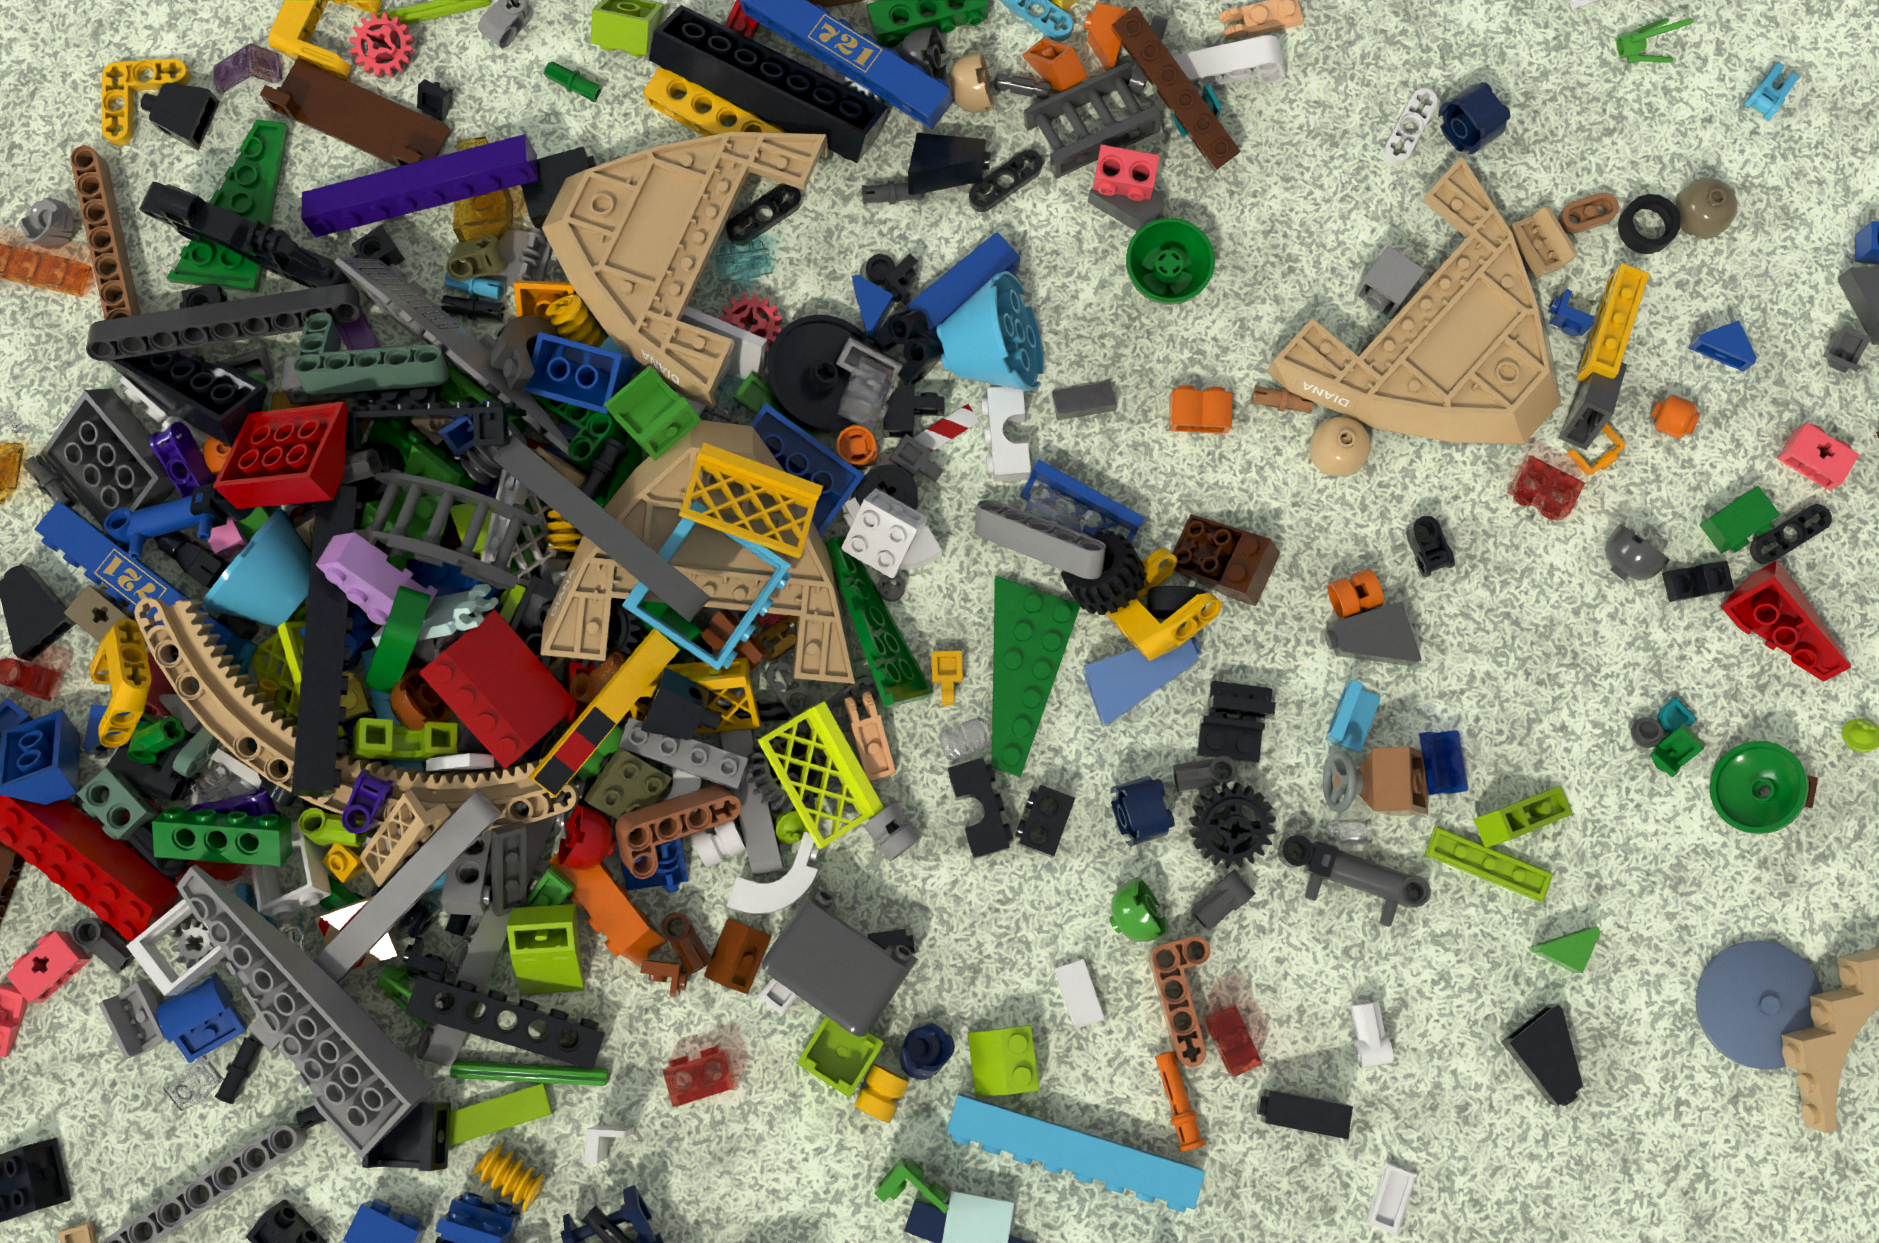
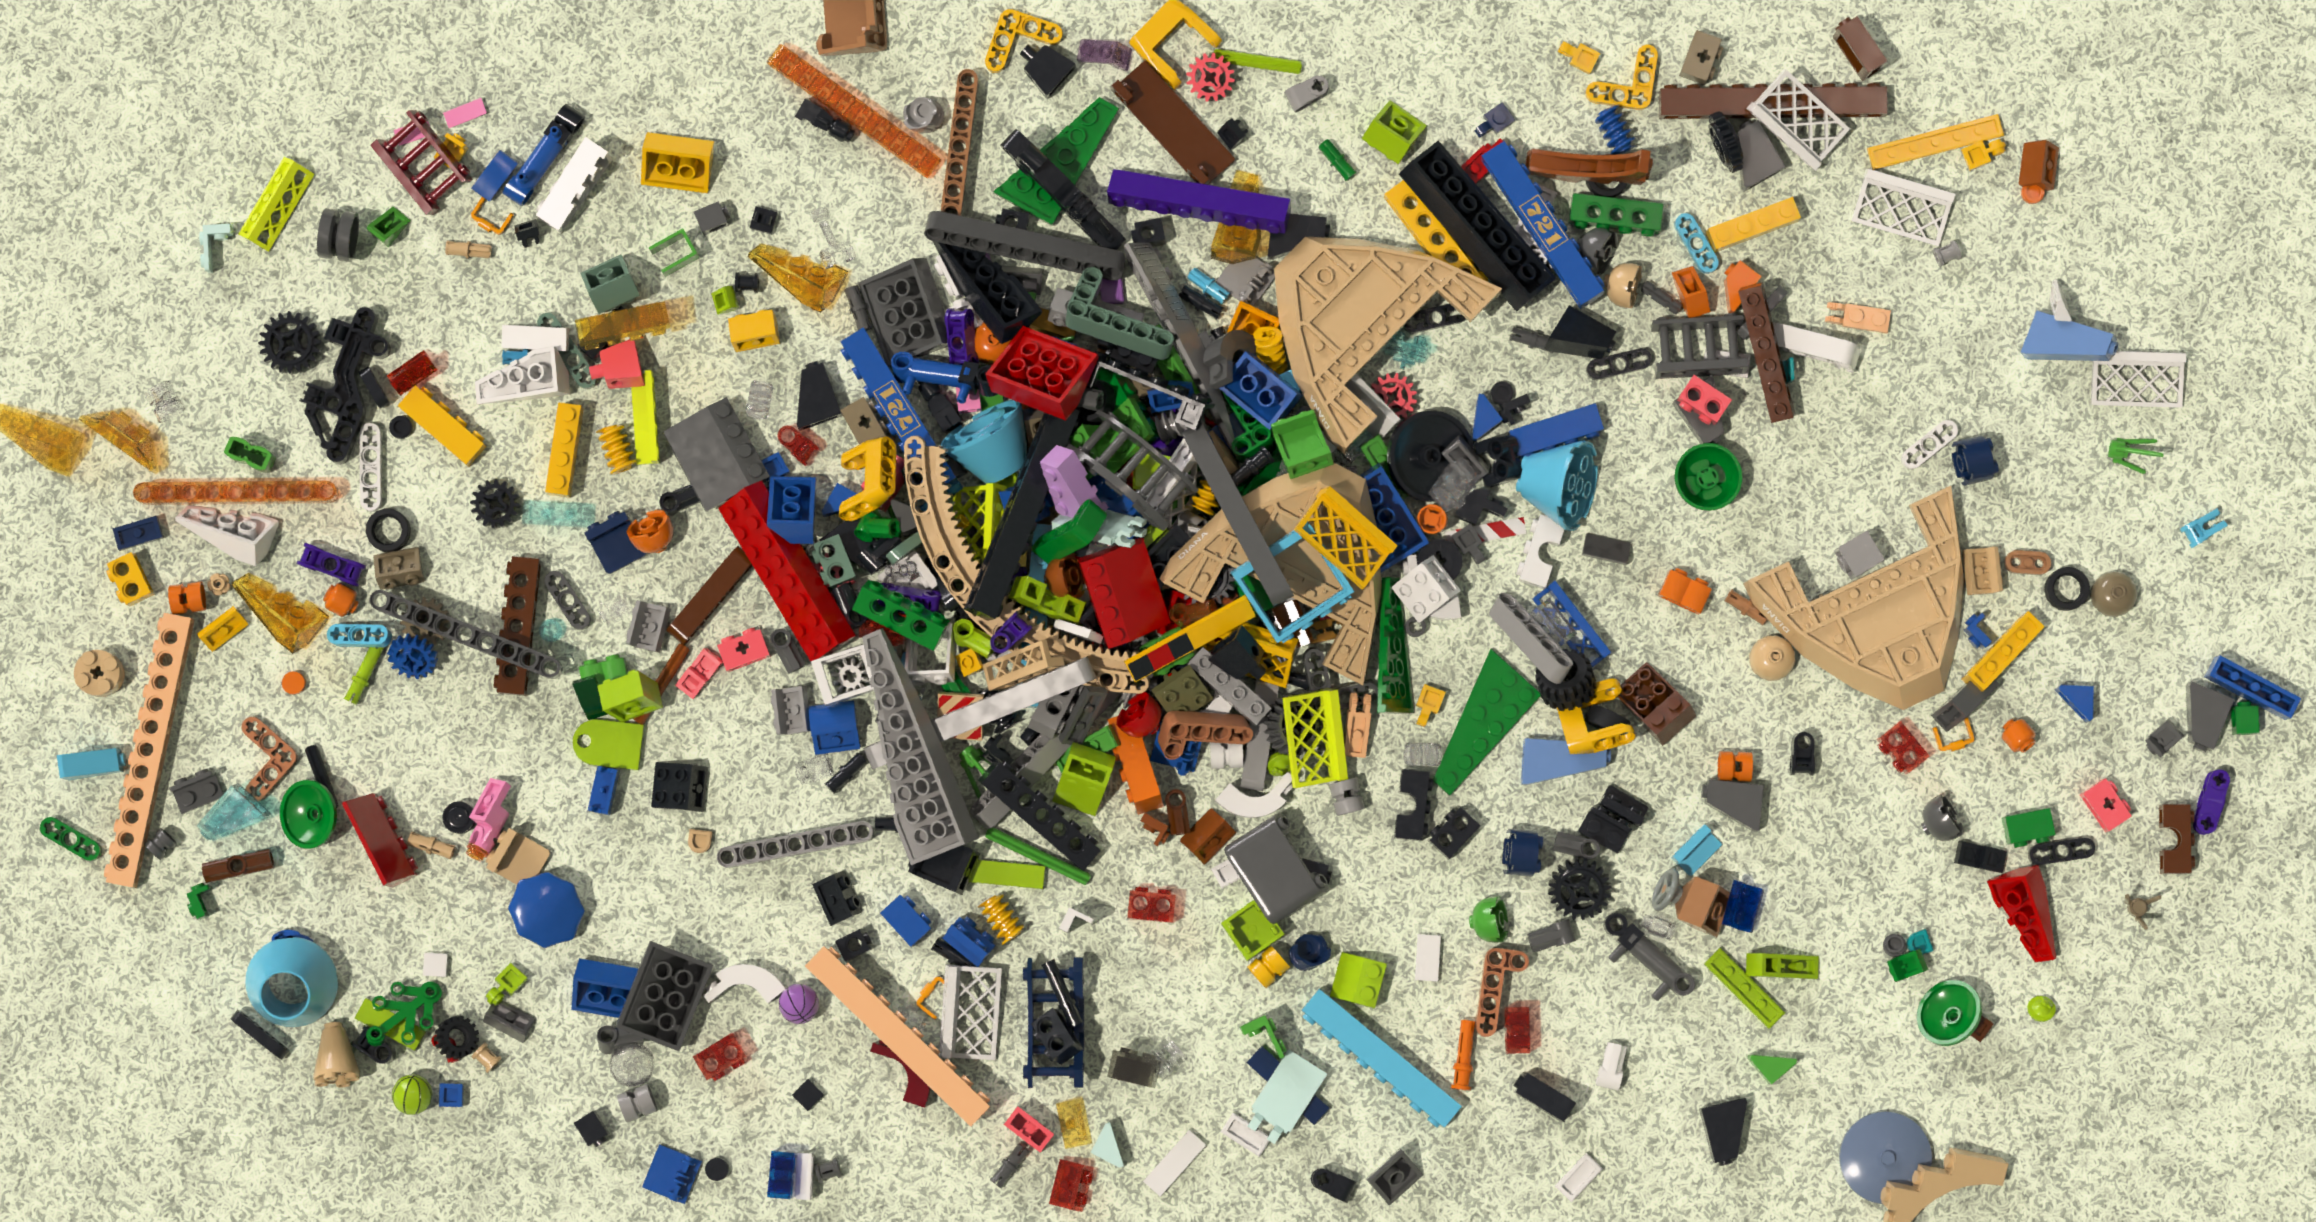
camera: 20 degrees right, 5 degrees up
(479, 256) = (1216, 269): olive piece -> none

